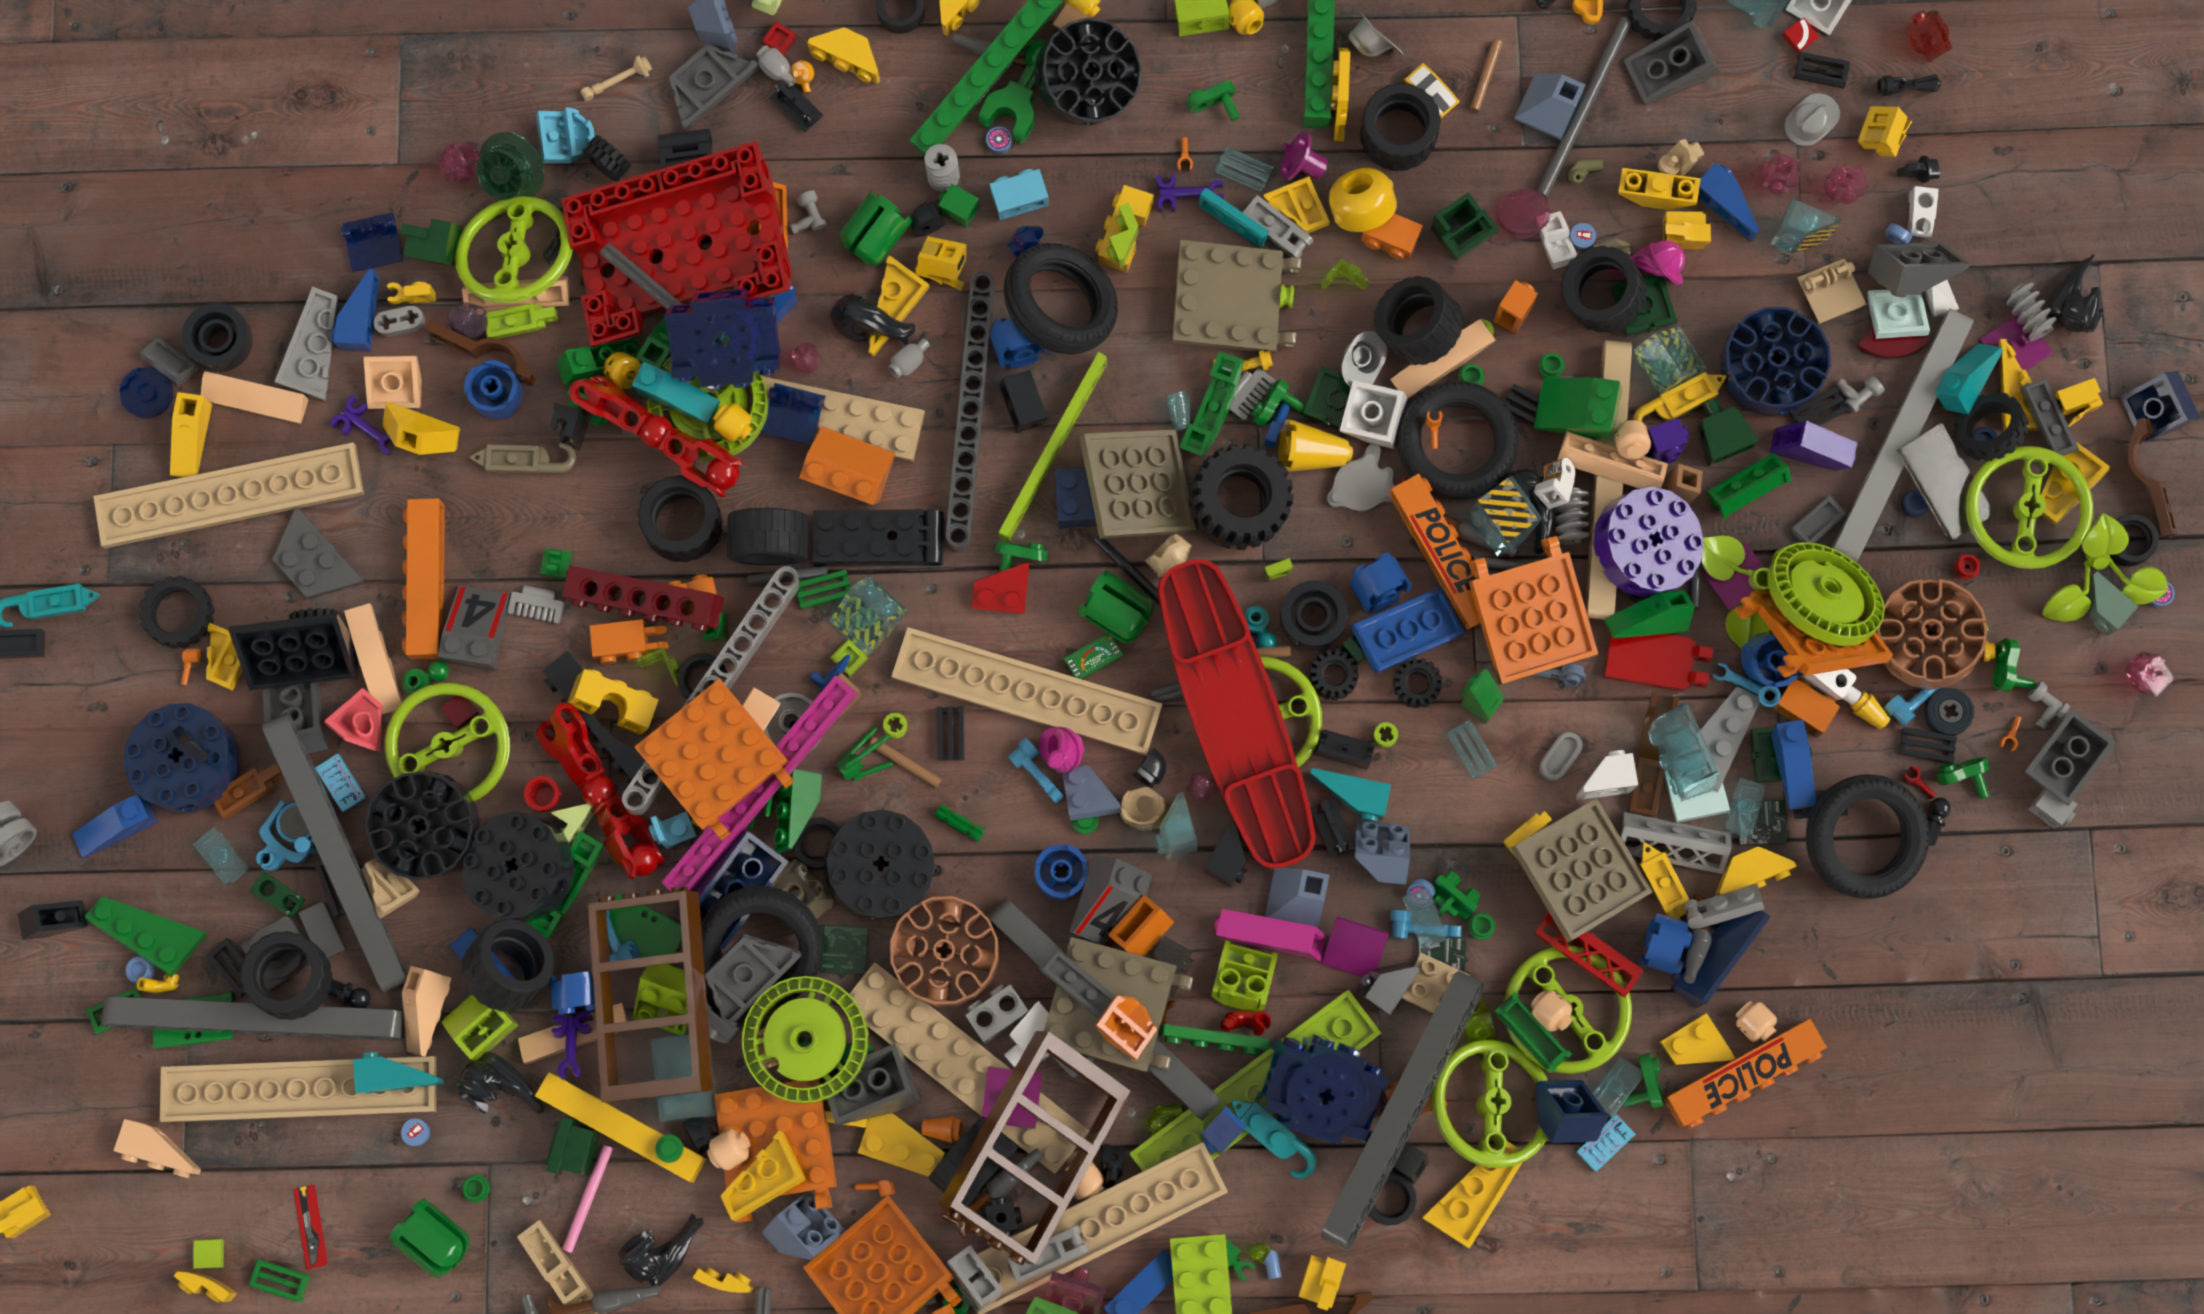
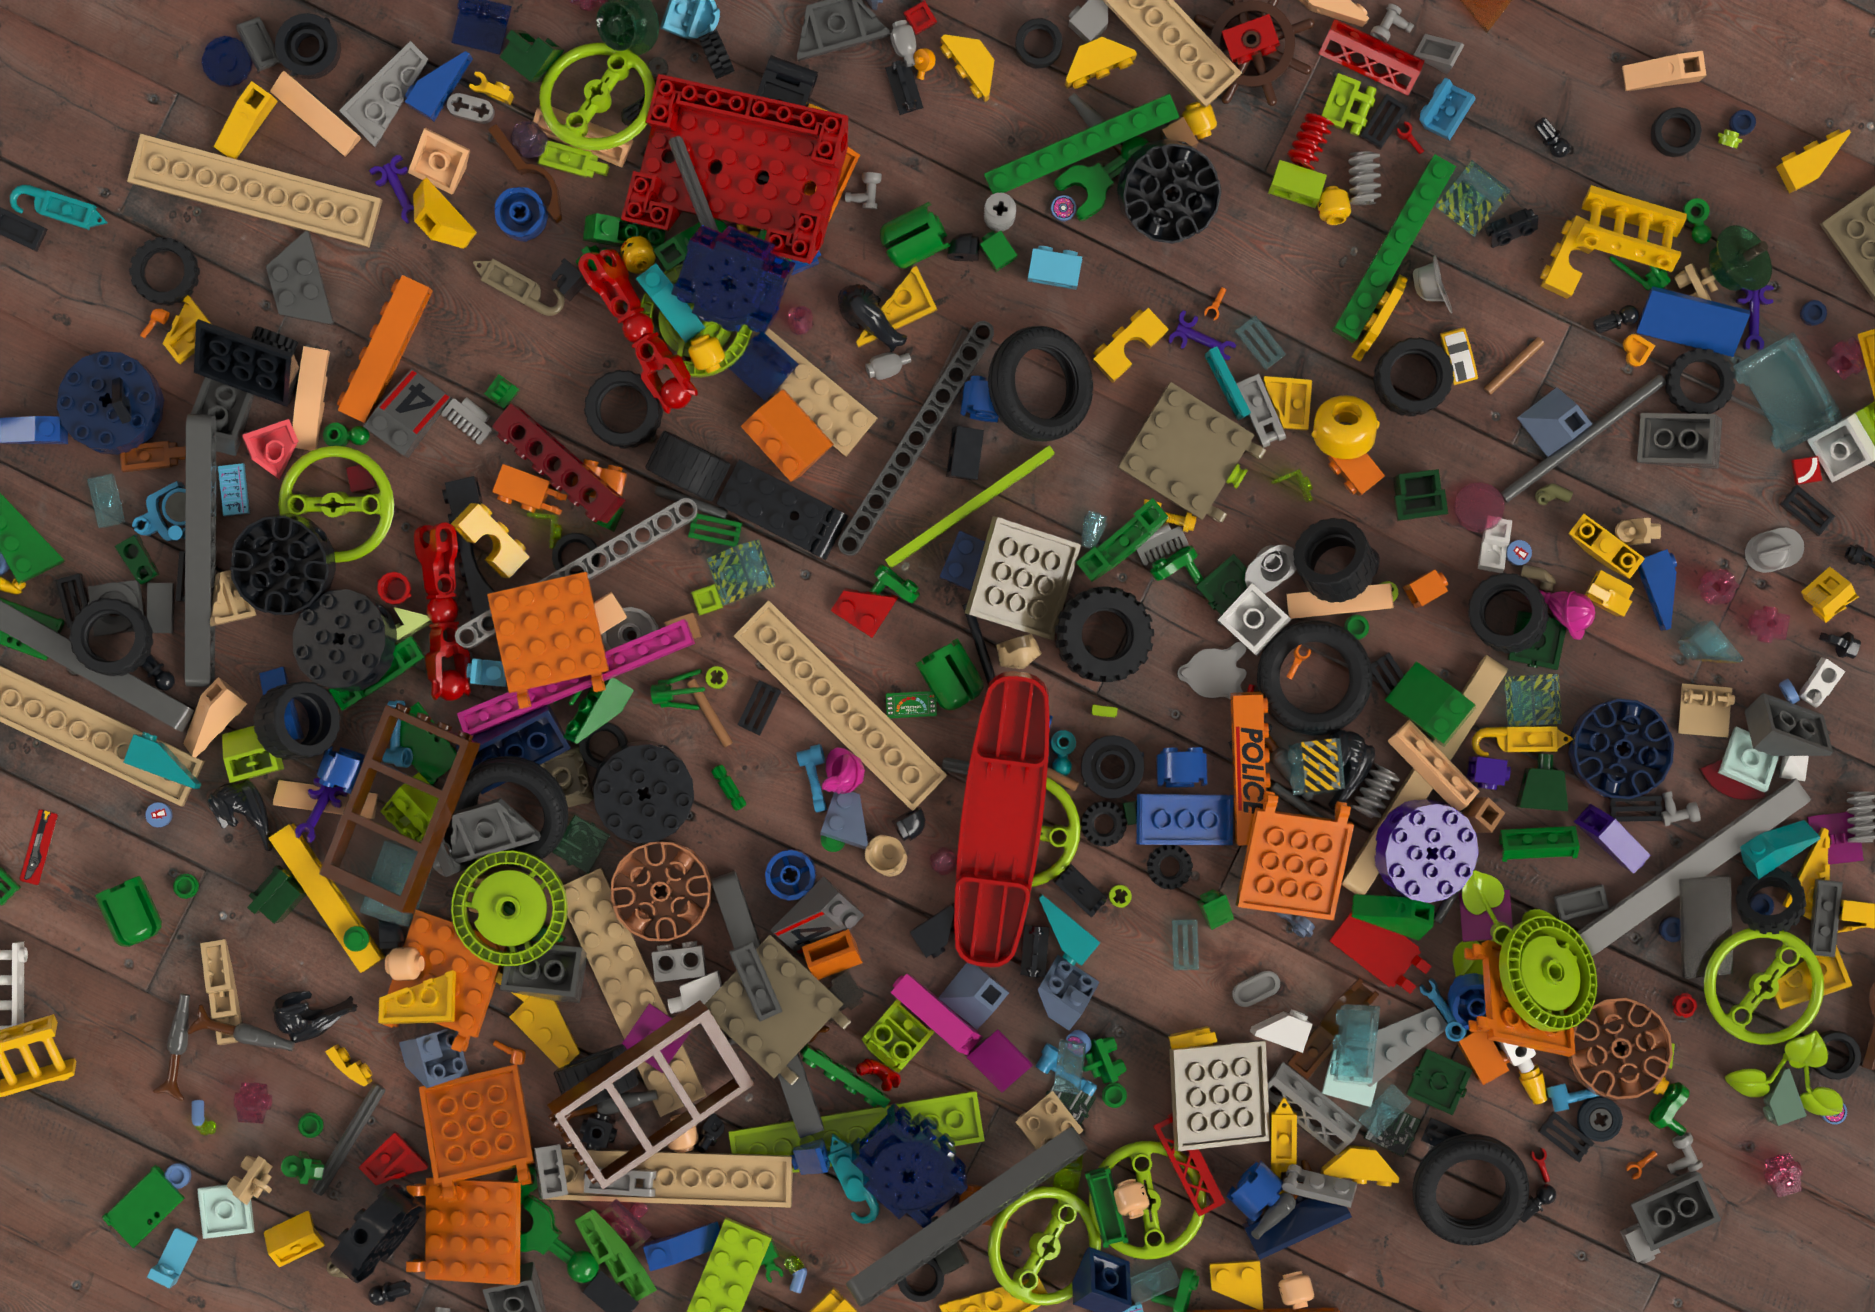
camera: 25 degrees right, 10 degrees up
(587, 1198) = (272, 940): bright pink bar -> none
(823, 681) = (685, 609): blue bar -> none
(942, 261) = (958, 294): yellow piece -> none
(944, 1128) = (589, 1034): orange cone -> none
(1025, 238) = (1039, 312): clear blue rock -> none
(1122, 243) = (1118, 362): lime slope -> none
(1126, 1025) = (776, 1034): orange slope -> none
(1160, 1116) = (771, 1113): clear neon green arm -> none
(1176, 831) = (902, 890): clear light blue slope -> none
(1201, 100) = (1276, 265): green piece -> none
(1276, 425) = (1166, 587): blue bar -> none
(1301, 158) = (1313, 360): magenta piece -> none
(1310, 448) = (1185, 621): yellow cone -> none
(1386, 985) = (1010, 1104): slope -> none
(1551, 365) = (1429, 652): green plate -> none
(1557, 481) = (1375, 761): white leg -> none
(1632, 439) = (1459, 757): light nougat head -> none
(1794, 763) = (1443, 1100): blue slope -> none
(1975, 767) = (1592, 1176): green piece -> none

